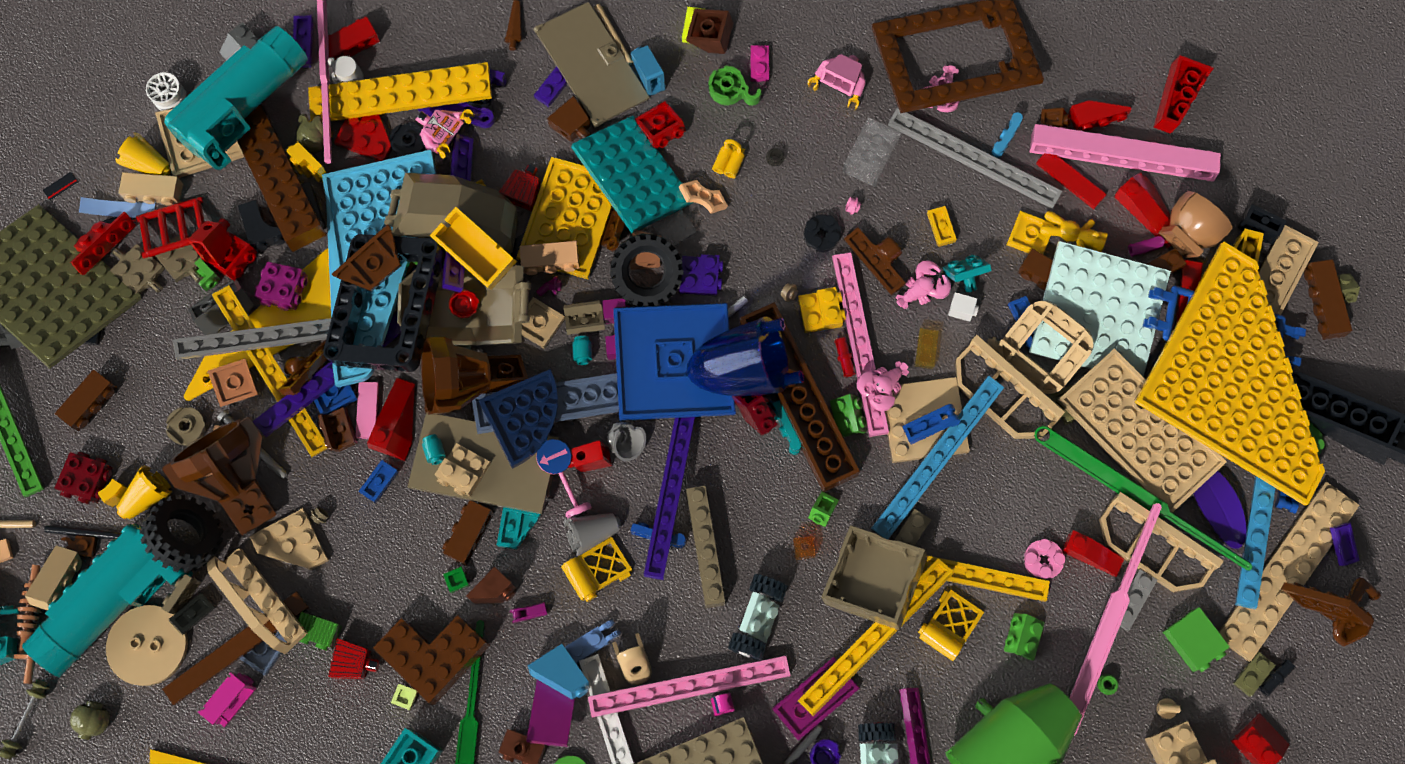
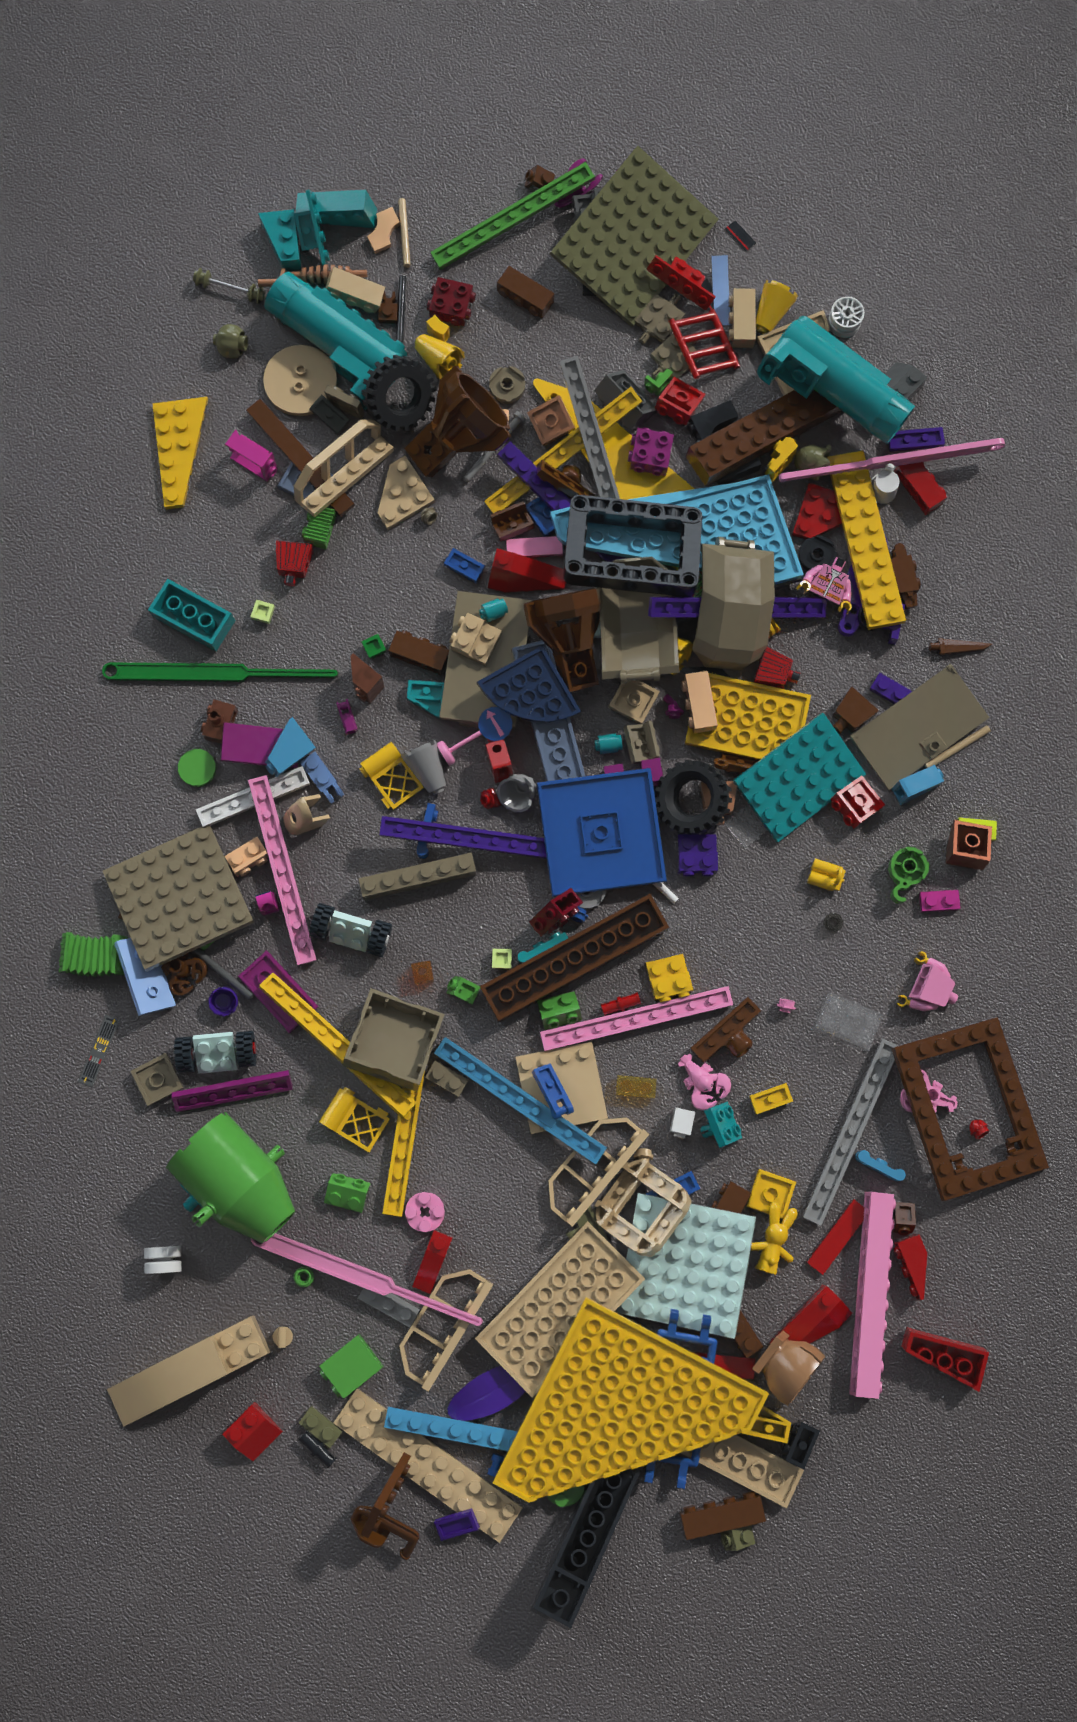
camera: 80 degrees right, 5 degrees up
(211, 241) = (689, 380): red torso -> none
(372, 262) = (670, 528): reddish brown wing -> none
(433, 666) = (291, 631): reddish brown piece -> none
(438, 60) = (905, 576): none -> reddish brown hinge
(463, 304) = (639, 622): red hair -> none
(473, 248) = (690, 621): yellow piece -> none
(629, 471) = (489, 799): none -> red plate
(670, 724) = (247, 856): none -> light nougat bracket
(710, 199) = (779, 859): light nougat tile -> none
(744, 361) = (597, 897): clear blue windscreen -> none
(789, 292) = (685, 944): tan plate -> none
(794, 468) = (501, 958): none -> yellowish green plate
(825, 223) = (758, 965): black plate -> none
(884, 383) = (591, 1042): bright pink animal -> none
(974, 49) = (978, 1129): none -> red plate
(1121, 483) = (497, 1296): green piece -> none
(1146, 246) = (767, 1318): magenta bar -> none

